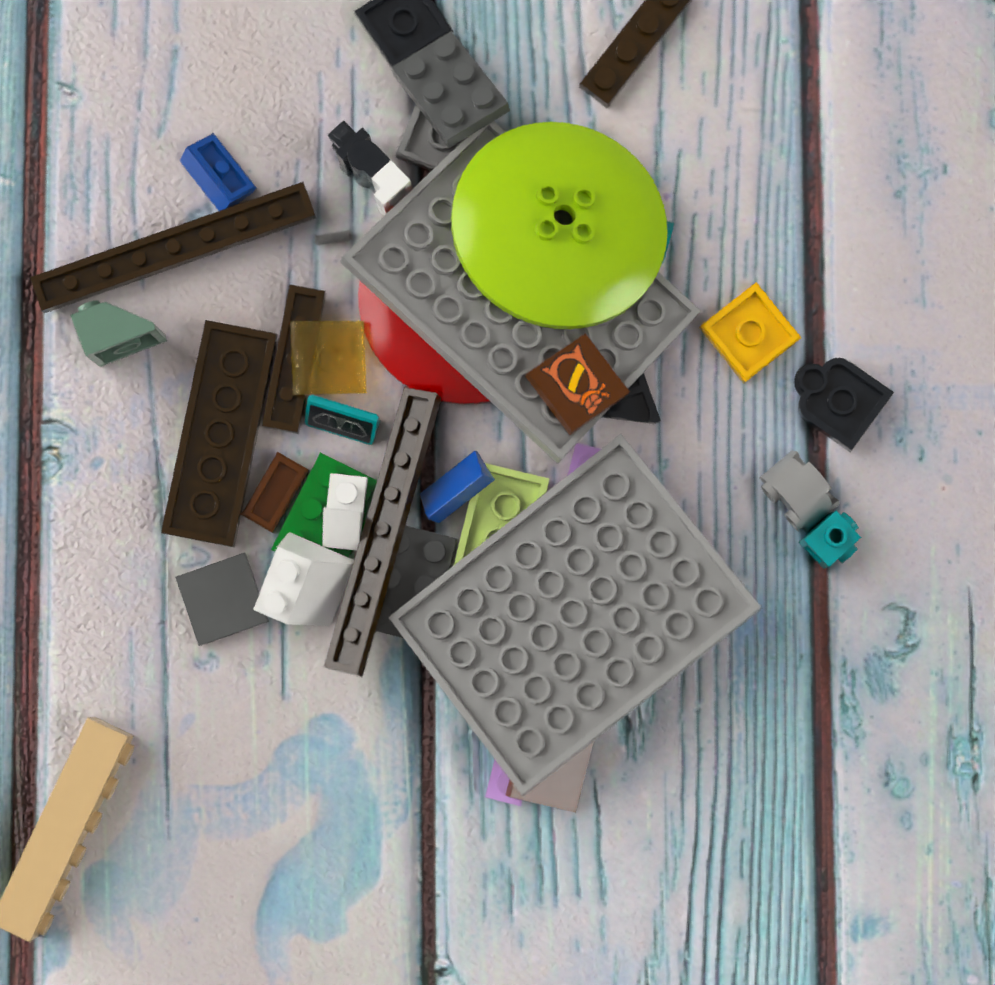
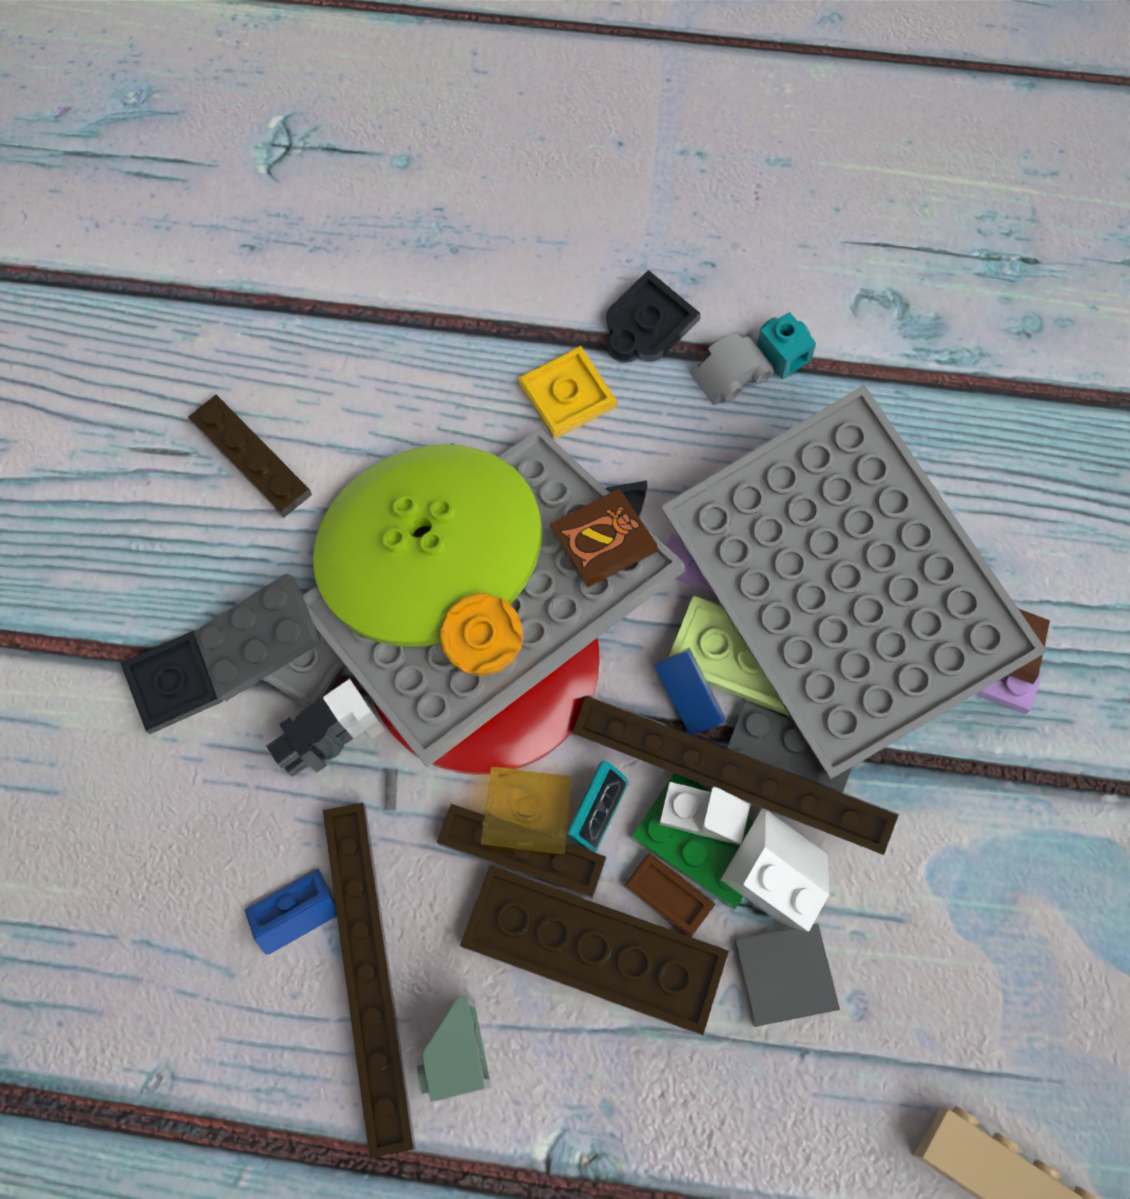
camera: 75 degrees left, 15 degrees down
(463, 288) = (482, 635): none -> light orange tile

